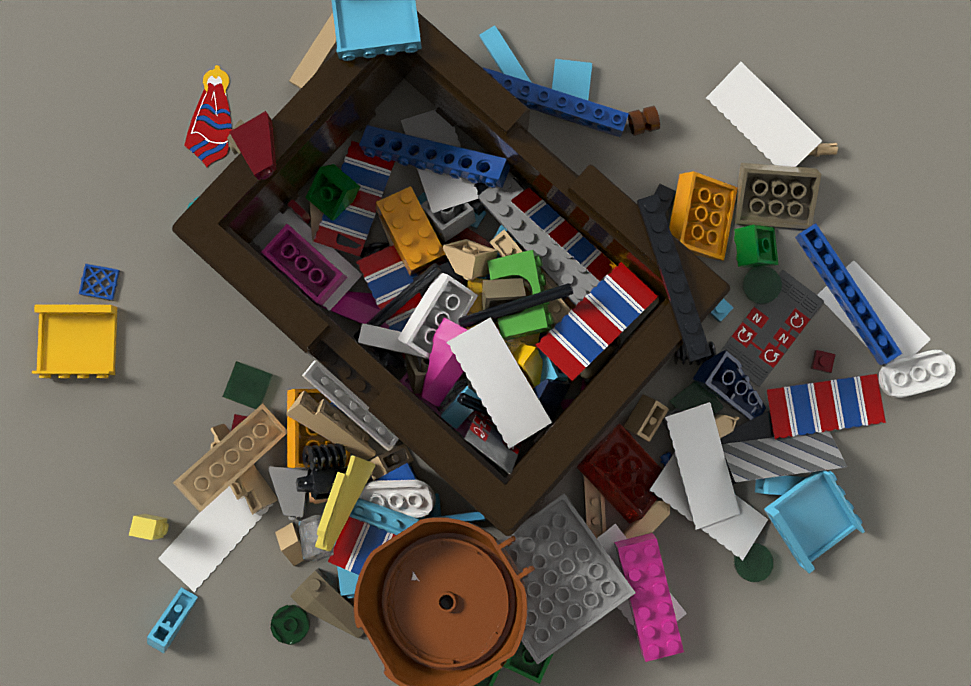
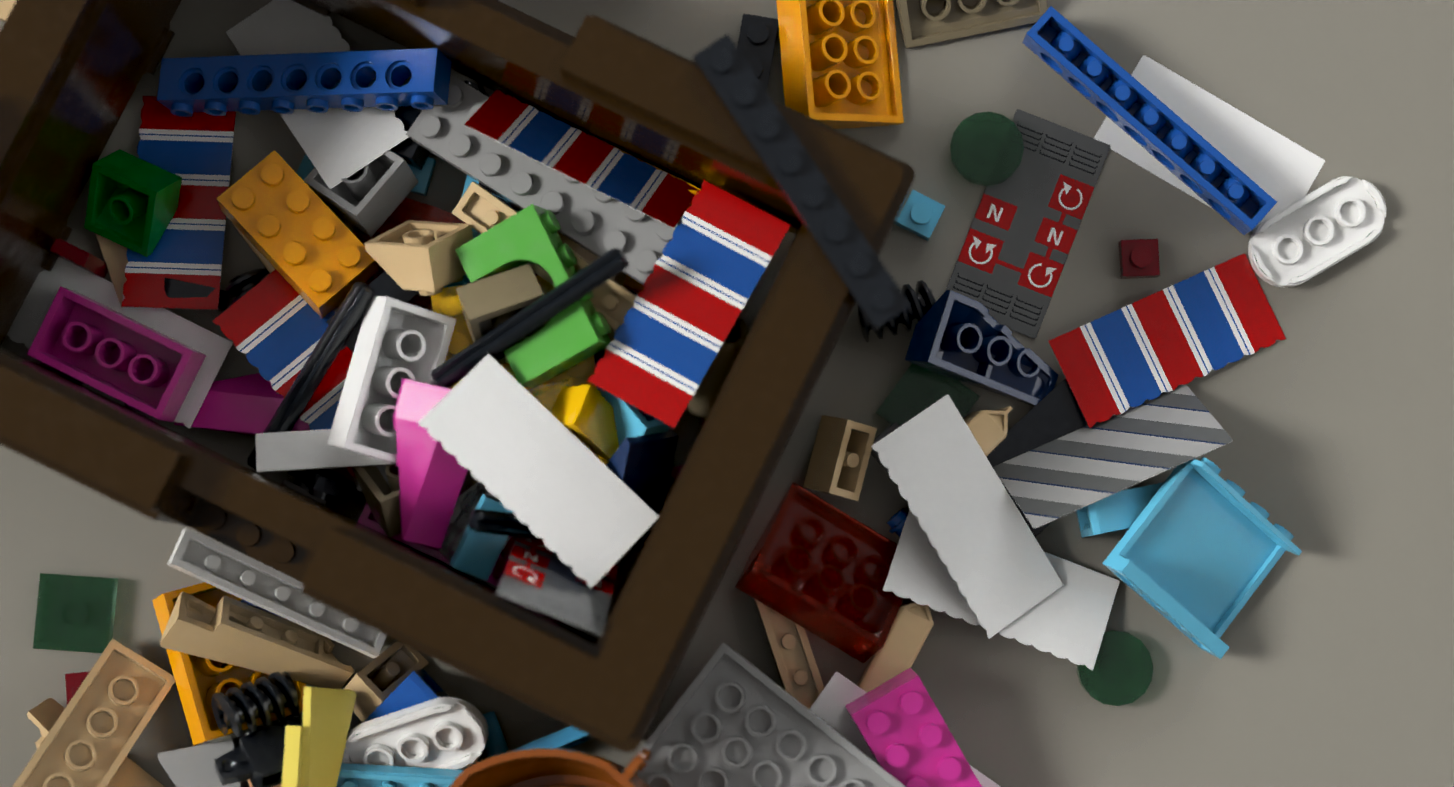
camera: 20 degrees left, 0 degrees up
(756, 246) = (955, 80): green slope -> none

